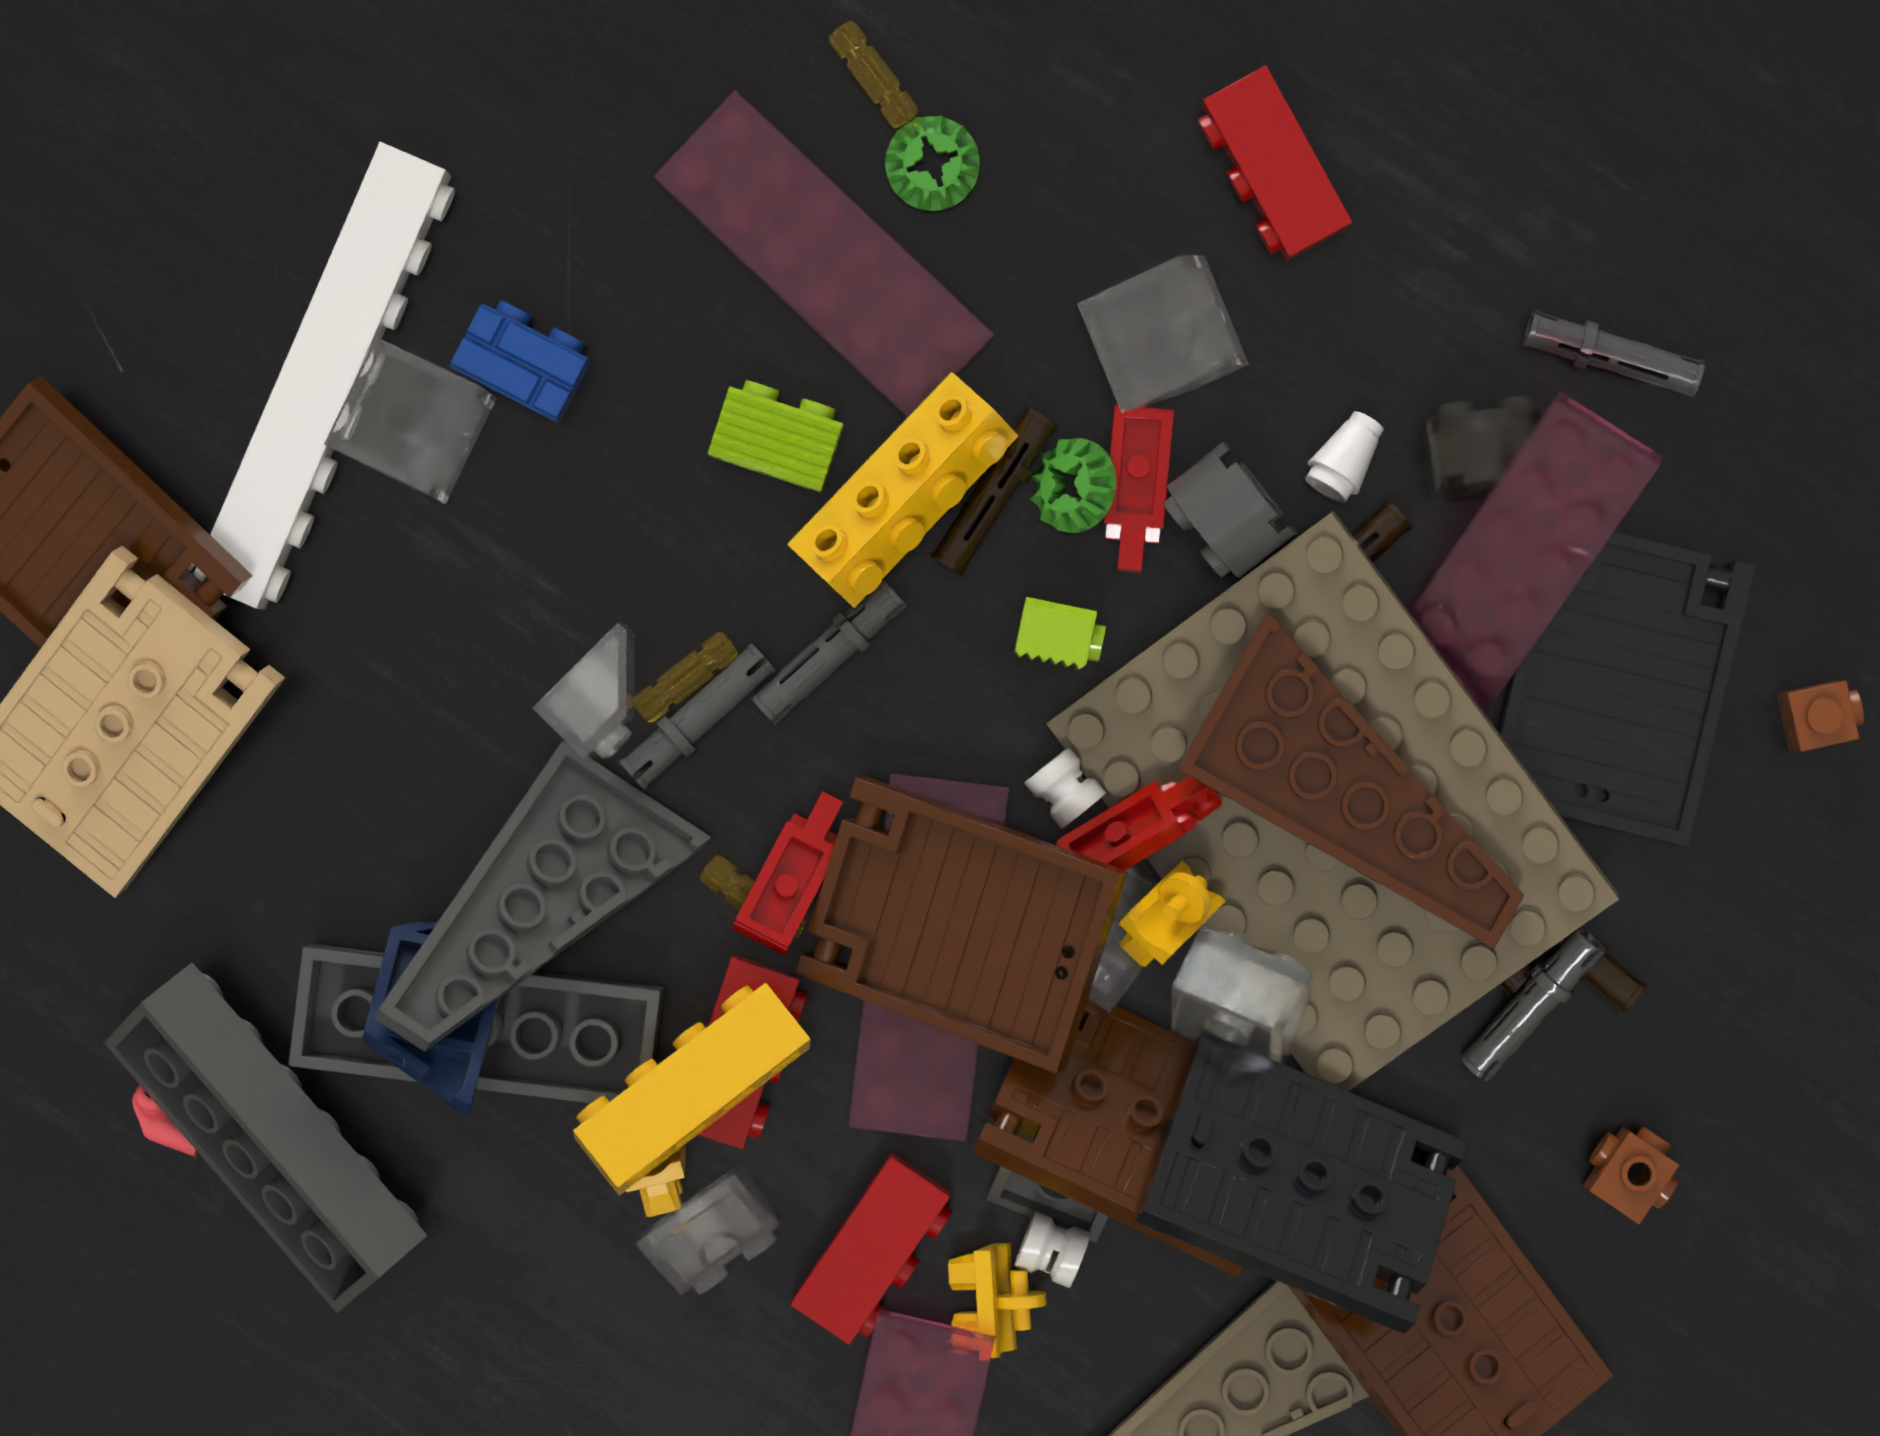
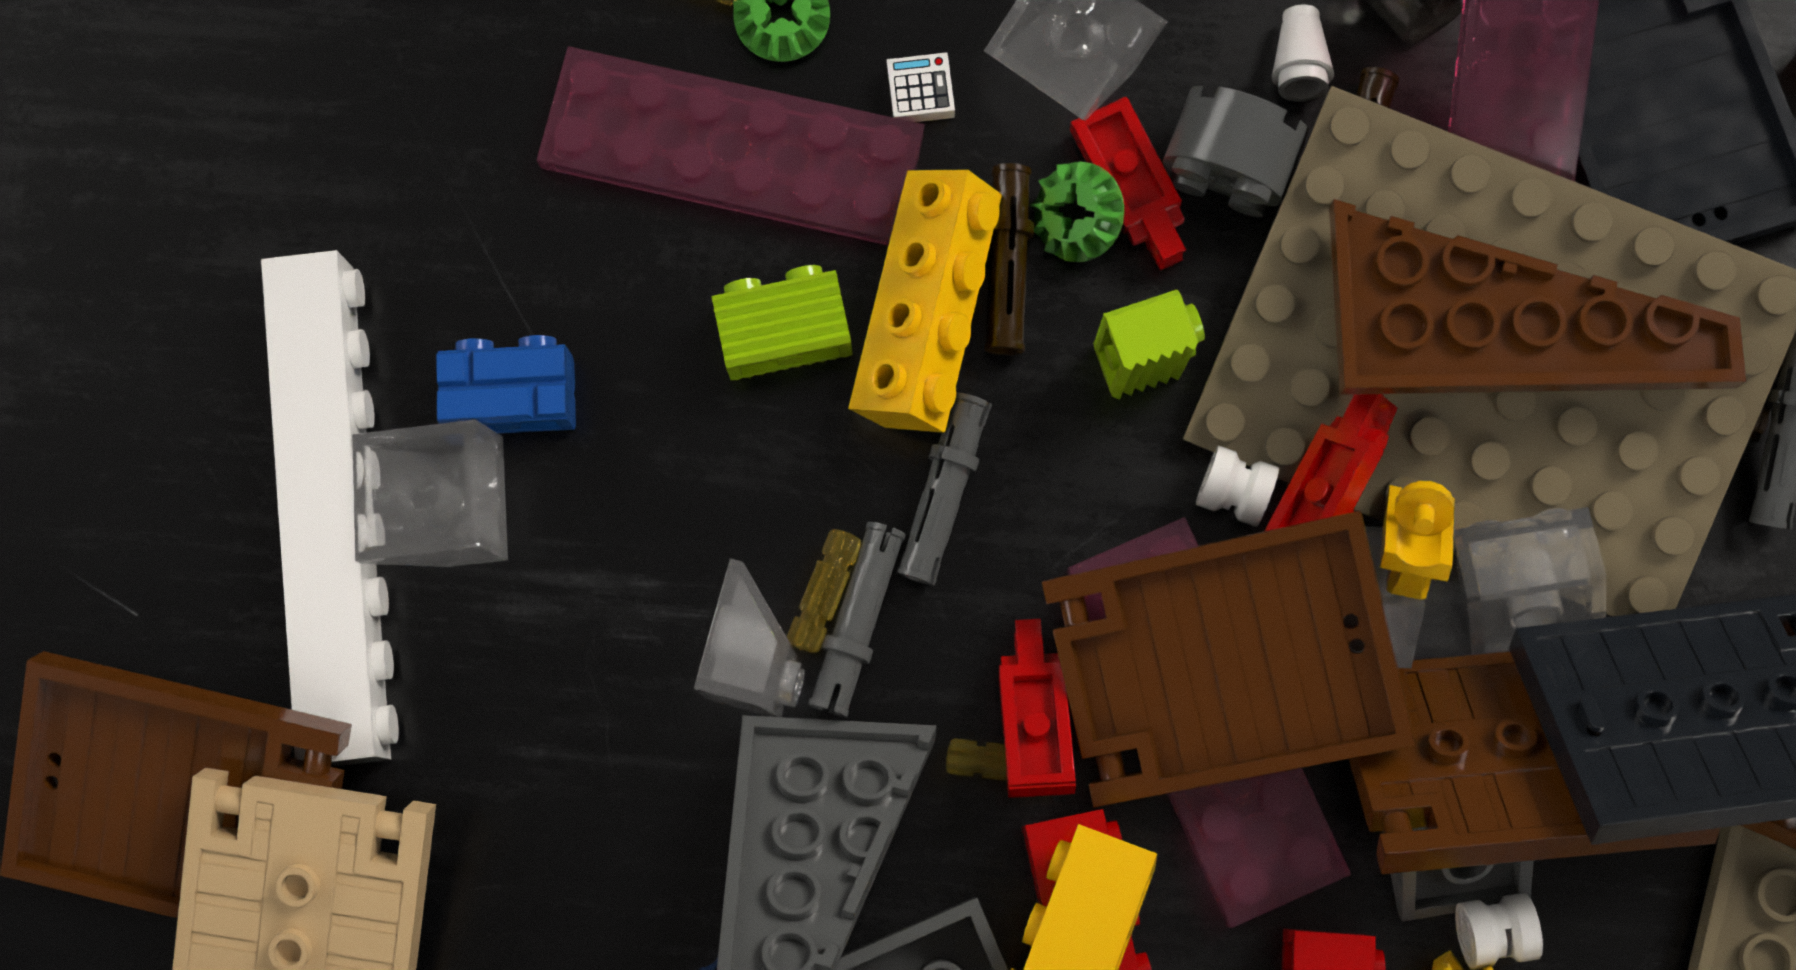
camera: 30 degrees left, 10 degrees down
(1010, 298) = (921, 87): none -> white tile

